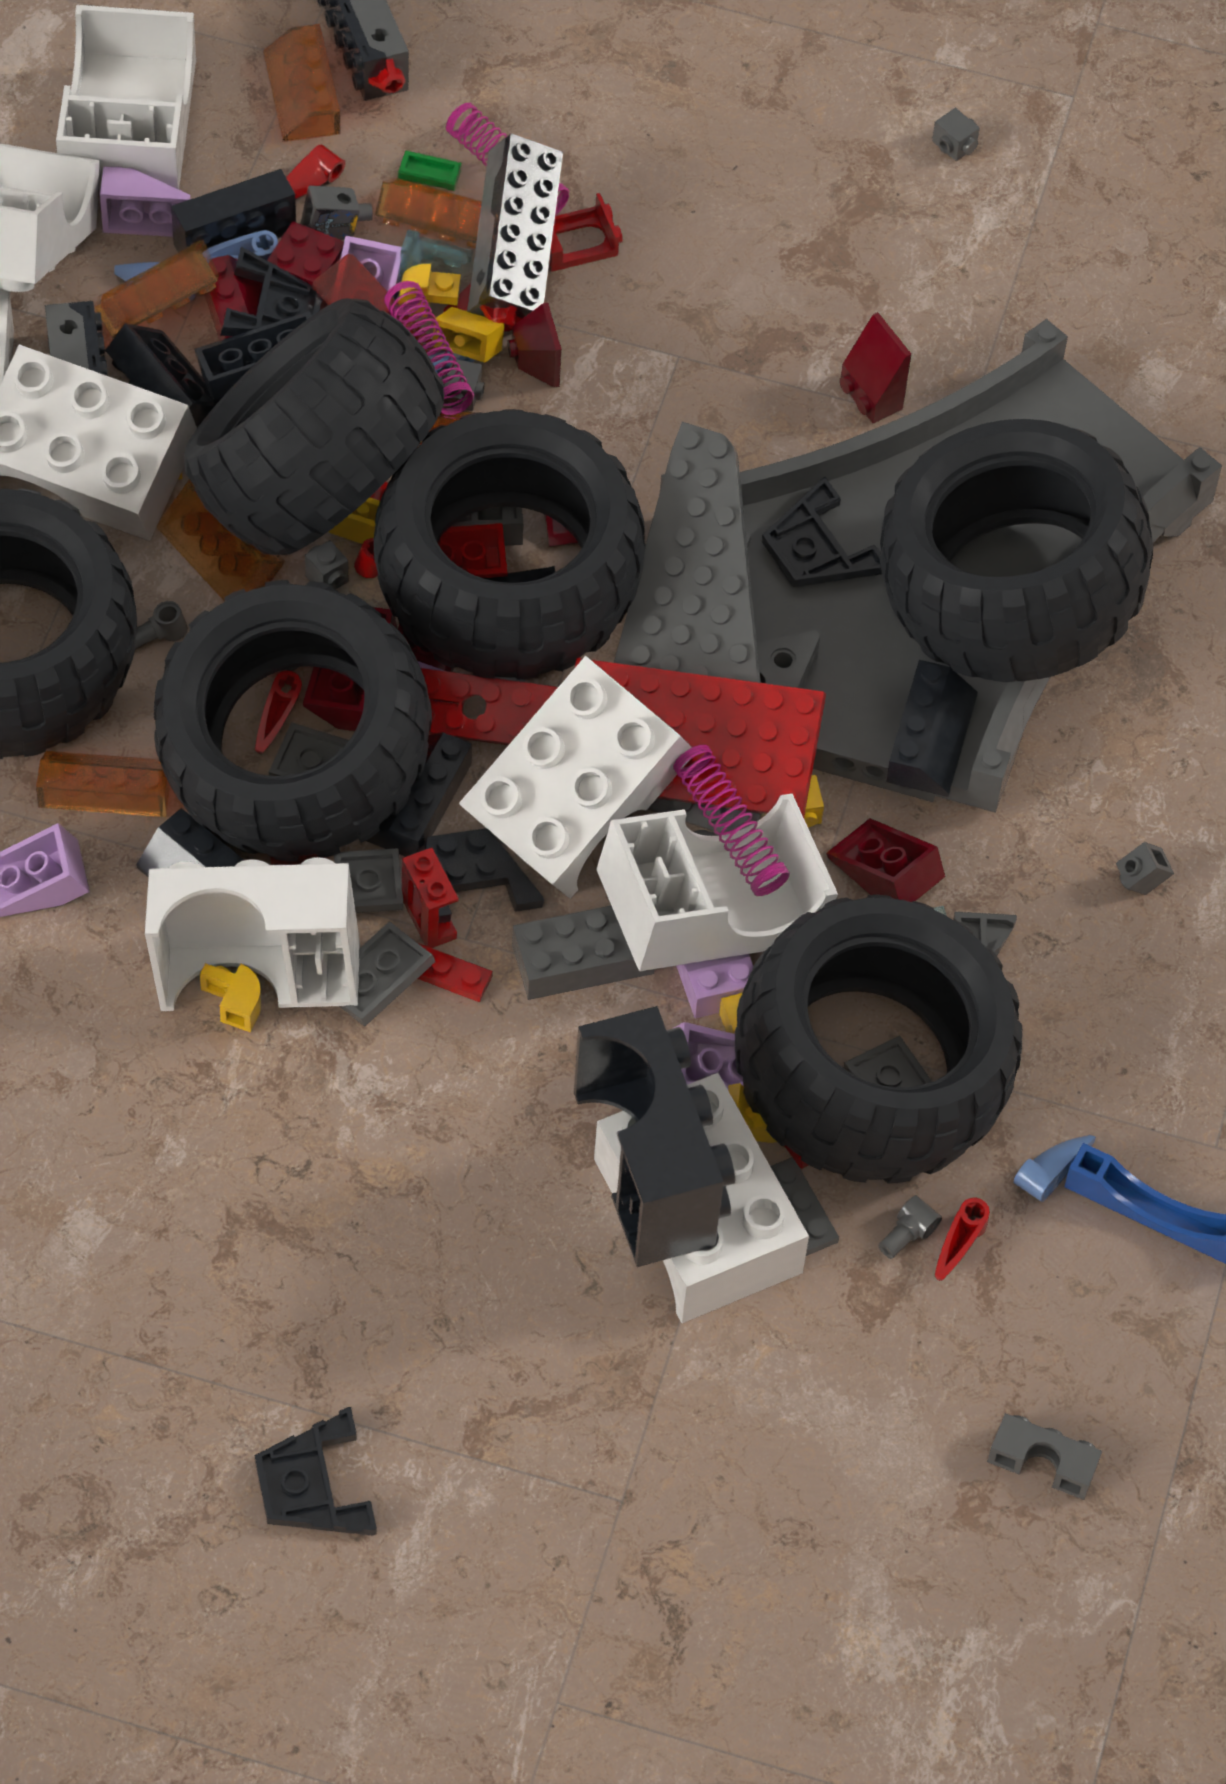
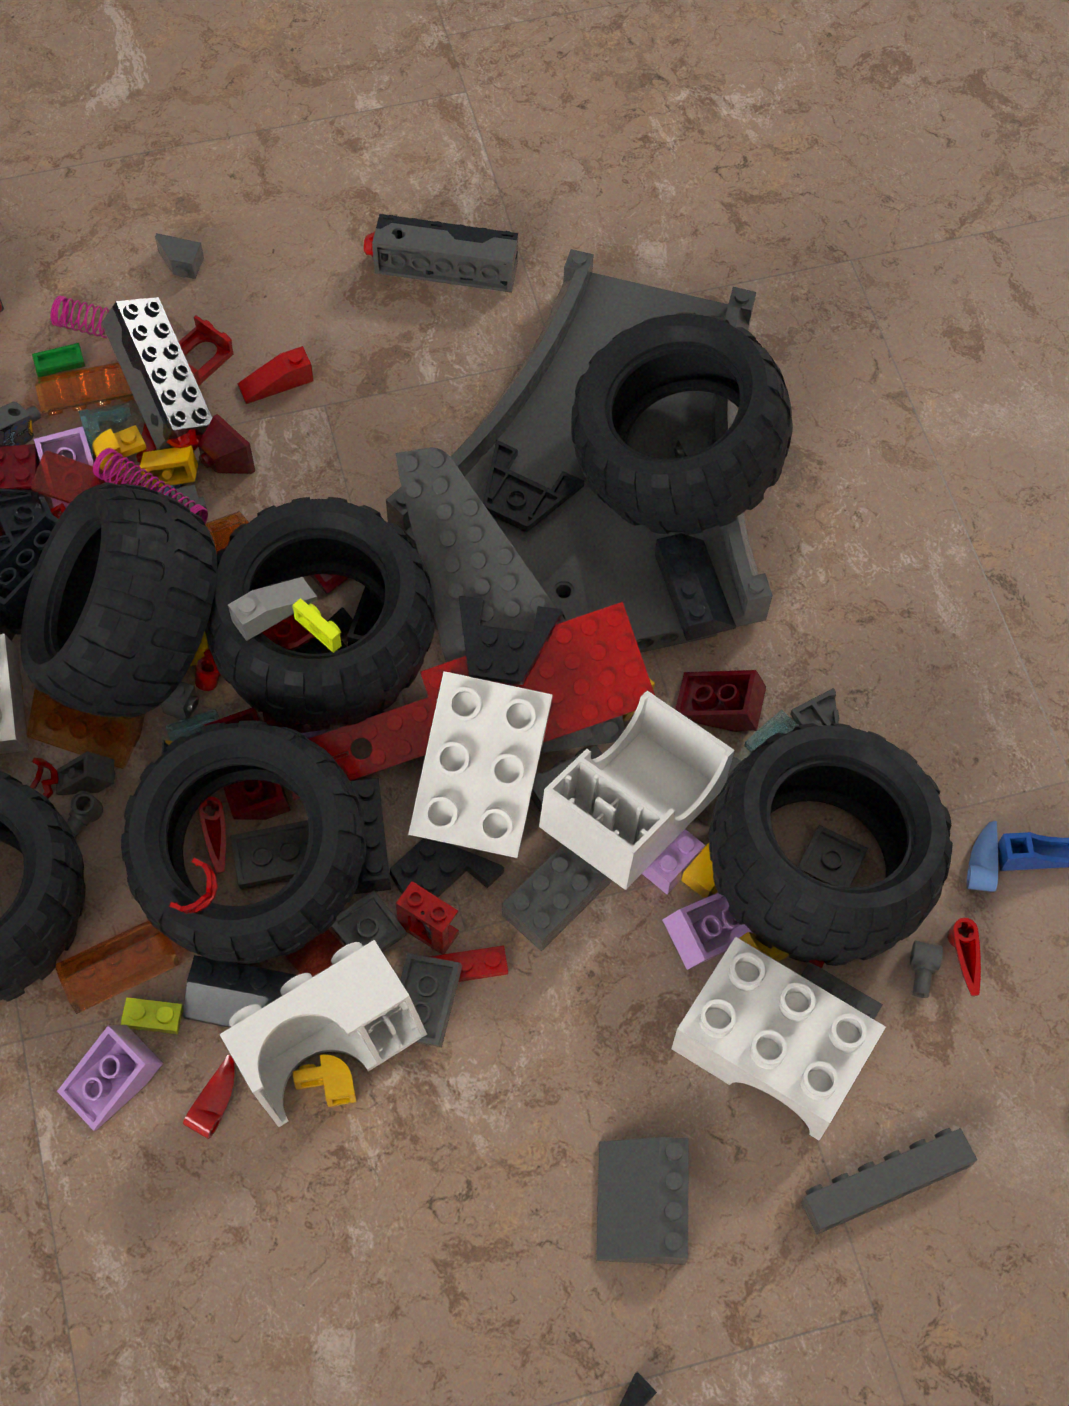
camera: 30 degrees left, 5 degrees up
(105, 954) = (211, 1103): none -> red piece
(108, 847) = (152, 1015): none -> neon yellow plate
(147, 580) = (41, 763): none -> red helmet
(190, 588) = (85, 773): none -> dark grey slope
(220, 736) = (205, 900): none -> red helmet
(448, 498) = (268, 606): none -> light grey slope
(466, 1271) = (643, 1201): none -> dark grey slope
(481, 532) = (312, 620): none -> neon yellow plate
(630, 124) = (180, 255): none -> dark grey slope
(648, 299) = (278, 375): none -> red slope
(667, 678) = (501, 652): none -> black wing
(668, 1173) = (785, 1046): black piece -> none
(721, 1391) = (888, 1180): none -> dark grey brick
(762, 875) = (671, 761): dark pink piece -> none
(877, 371) = (475, 343): dark red slope -> none
(915, 259) = (443, 252): none -> dark grey piece
(956, 134) = (409, 154): dark grey brick -> none
(1144, 868) = (893, 606): dark grey brick -> none

